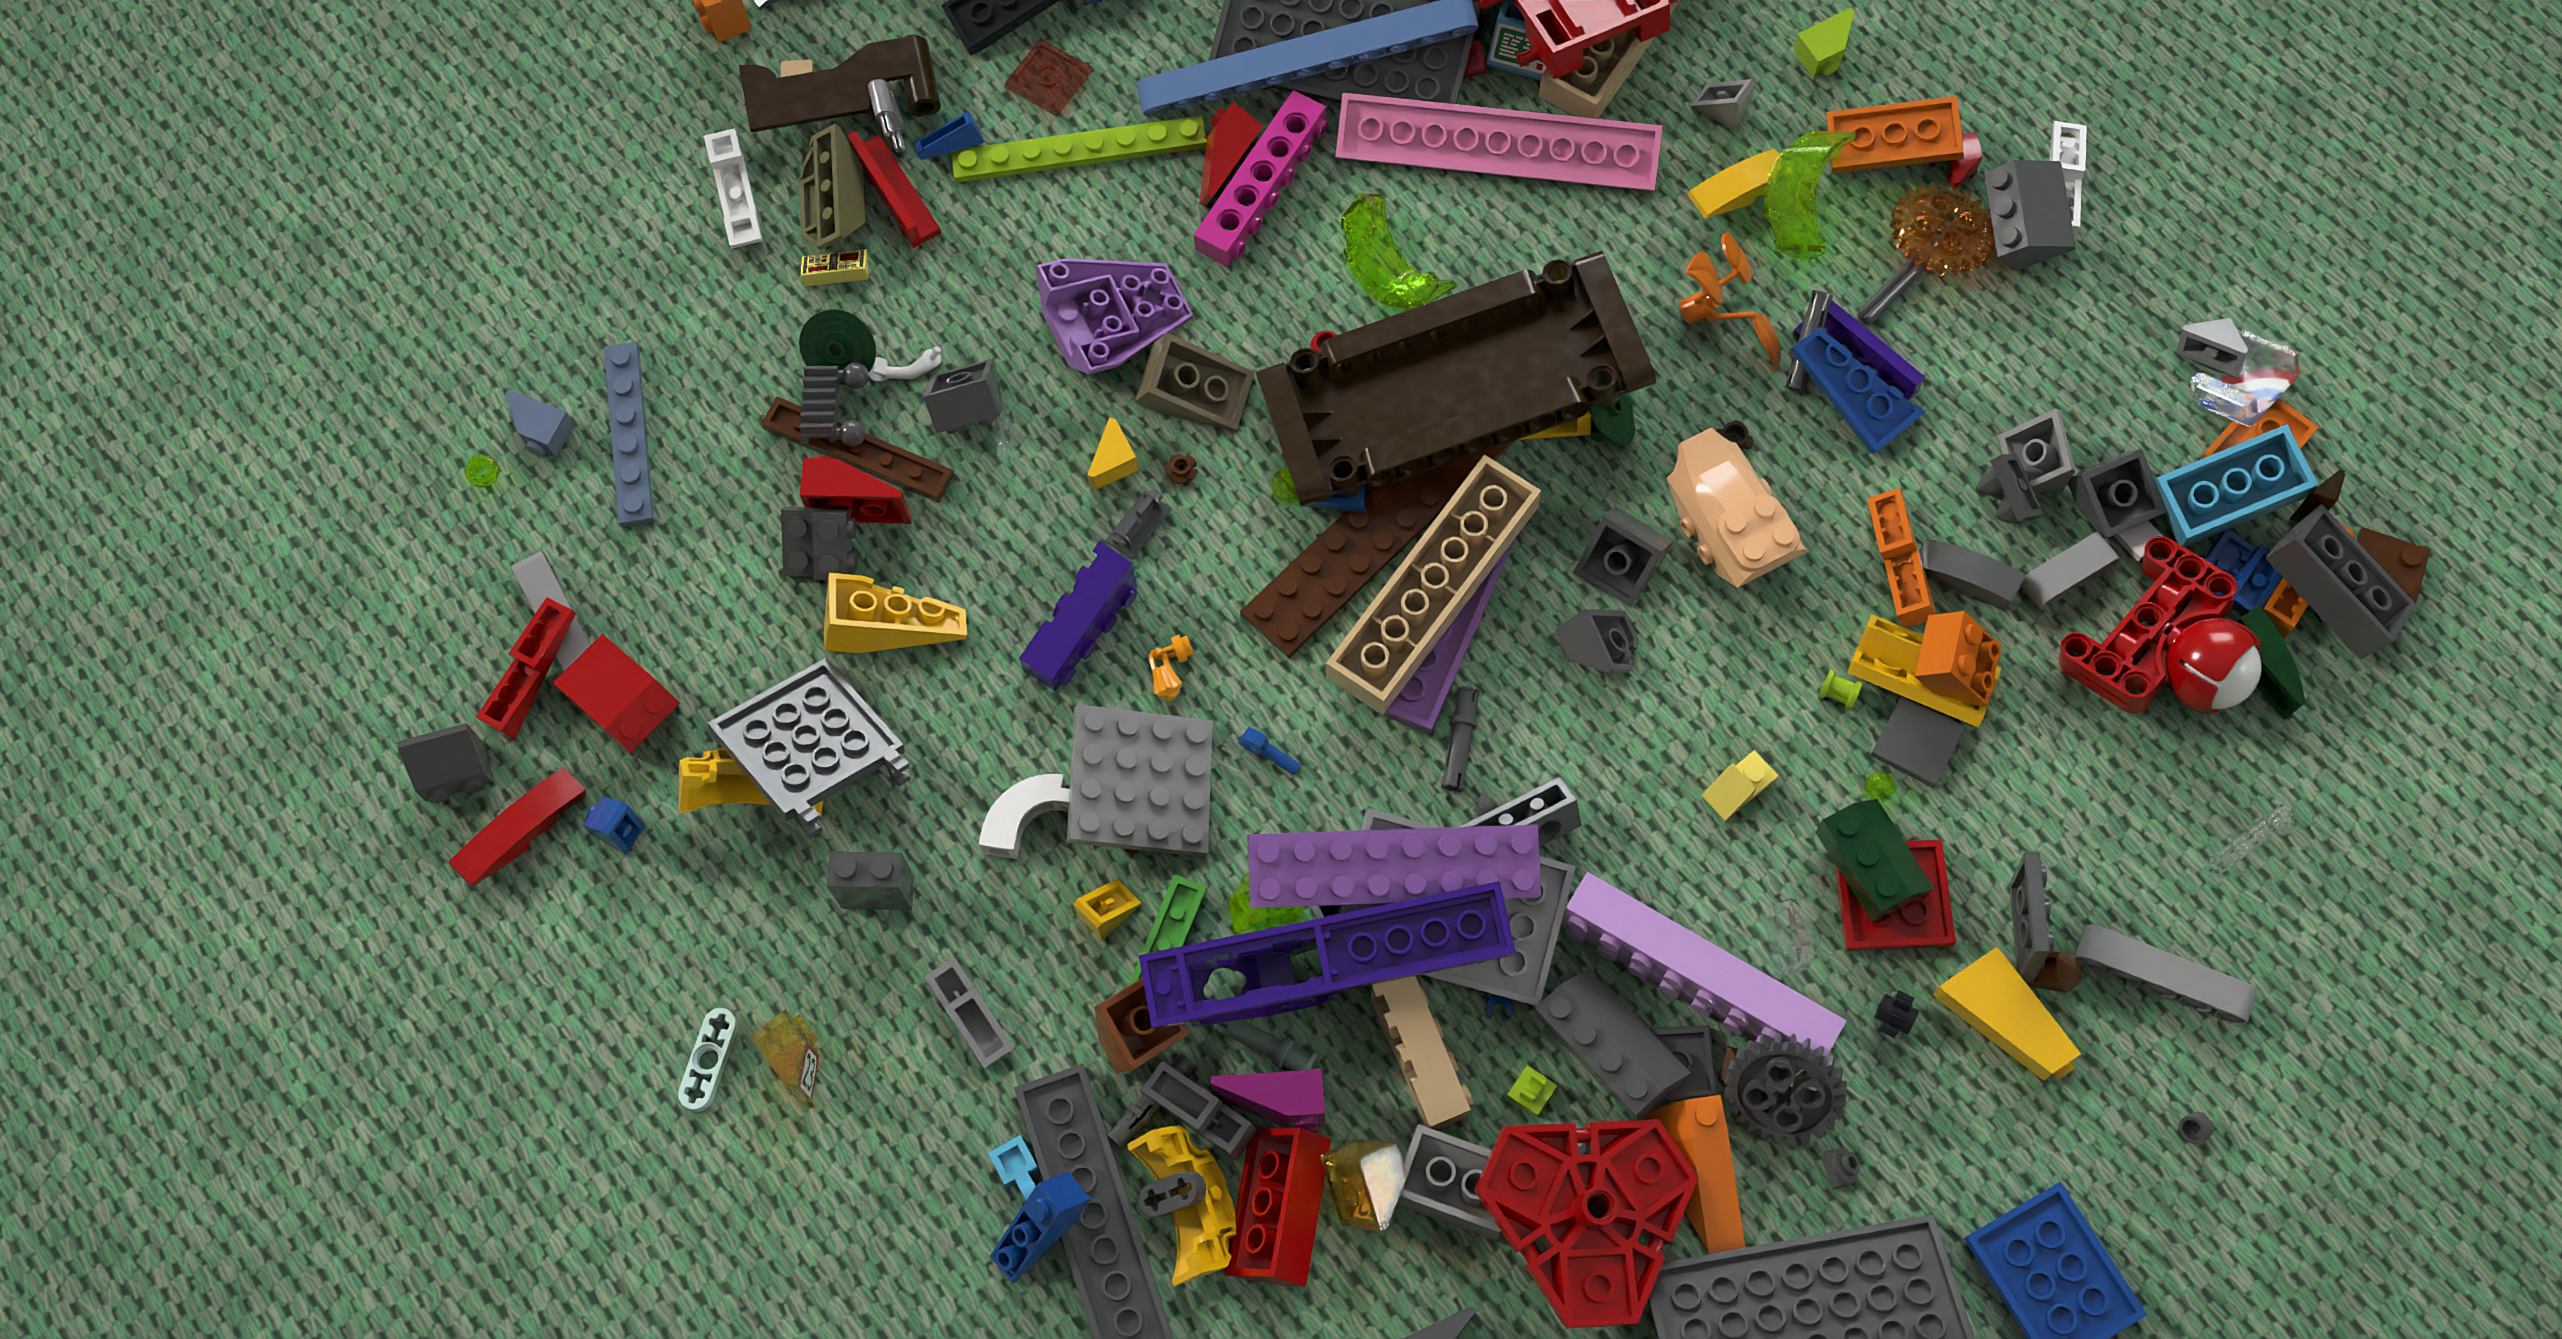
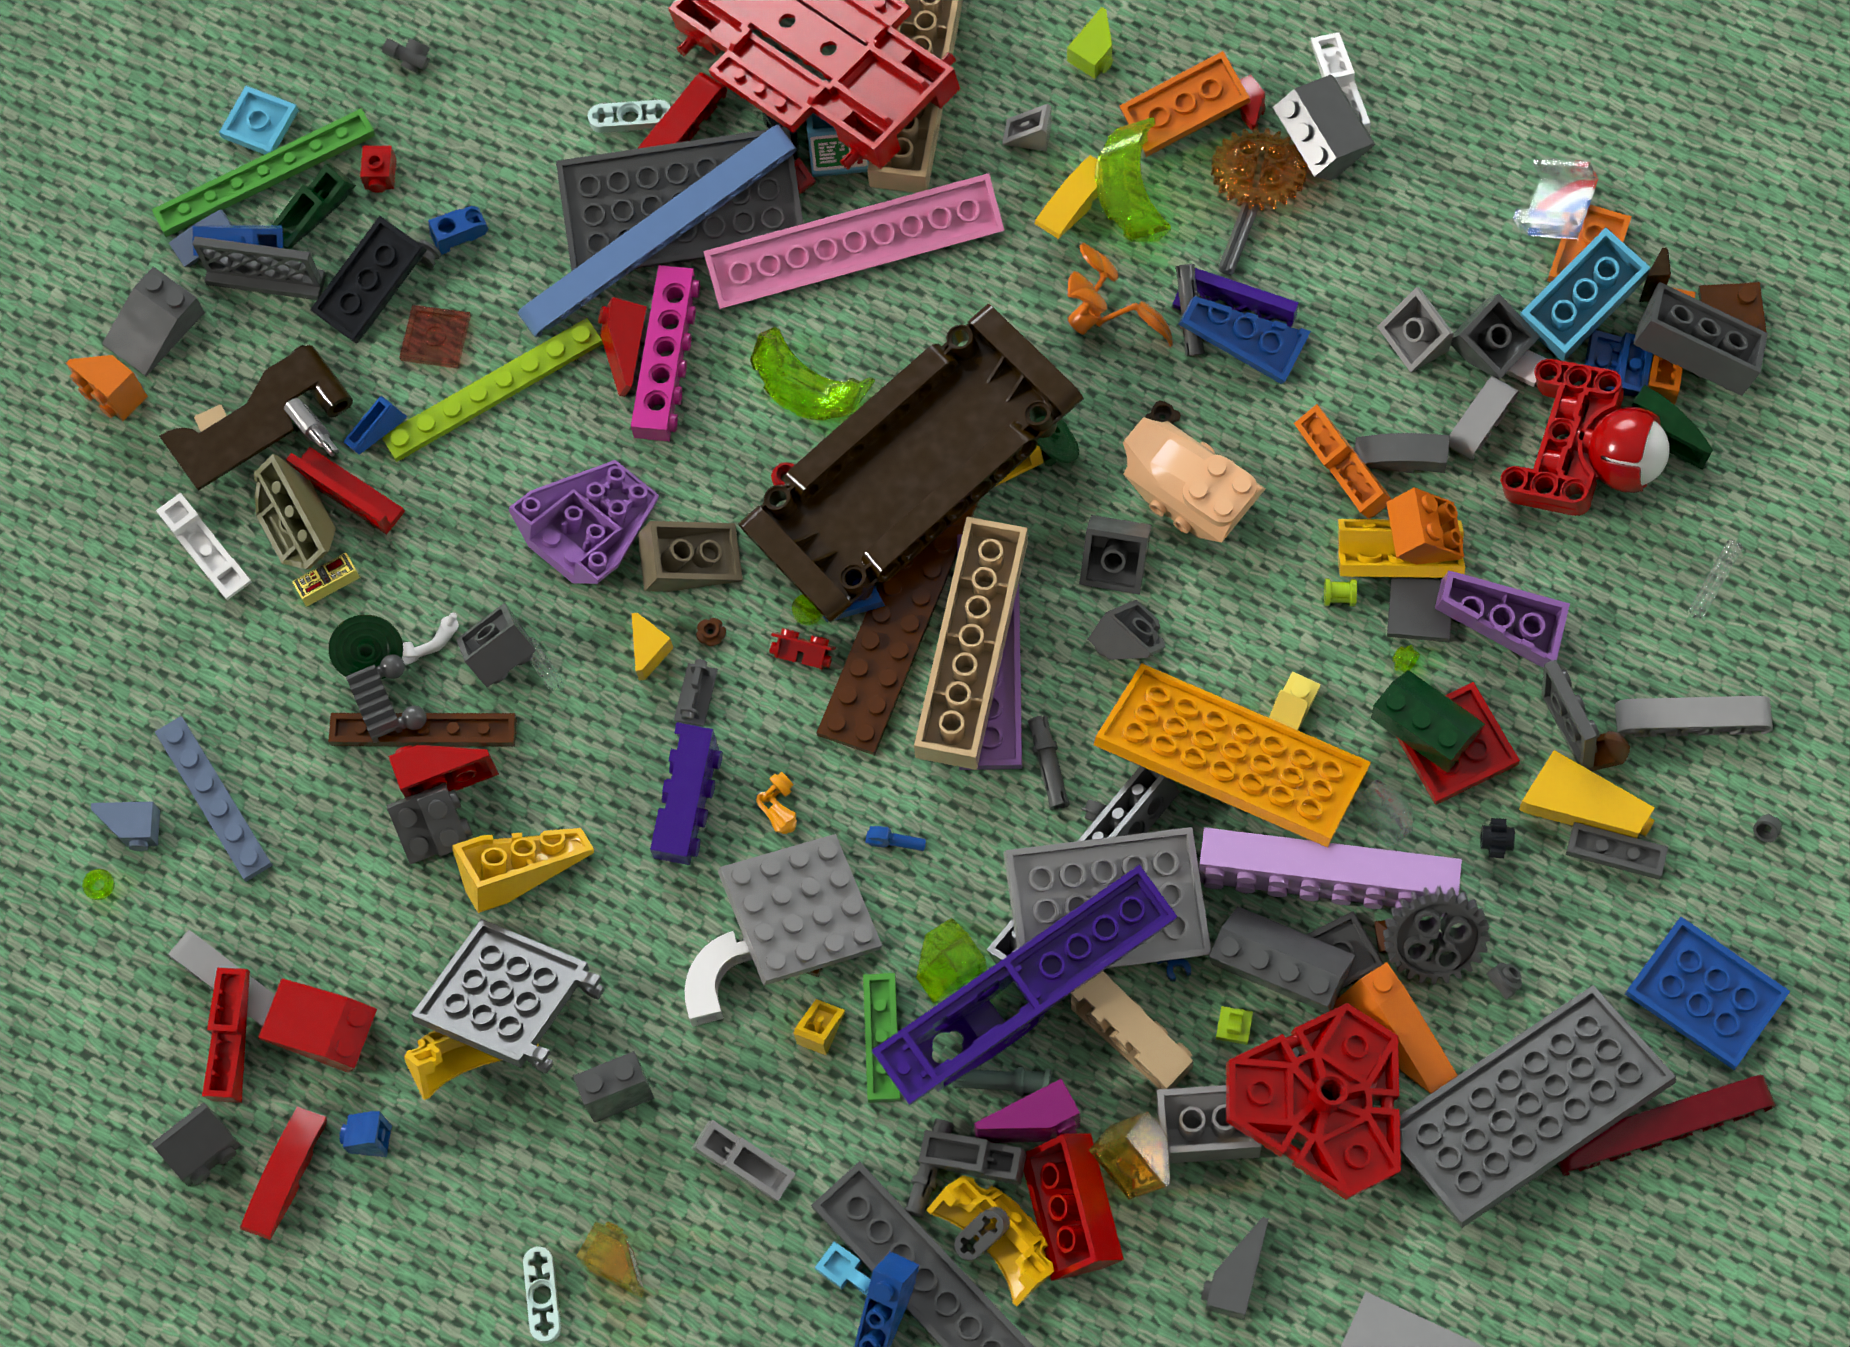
camera: 20 degrees left, 0 degrees up
(1127, 1030) = (886, 1116): dark orange slope -> none
(1254, 512) = (790, 645): none -> red hinge
(1390, 864) = (1043, 889): medium lavender plate -> none
(1653, 810) = (1233, 754): none -> light orange plate
(2006, 784) = (1506, 615): none -> medium lavender wedge
(2009, 477) = (1400, 359): dark grey tile -> none
(2020, 1082) = (1617, 850): none -> dark grey plate
(2214, 345) = (1520, 180): light grey slope -> none

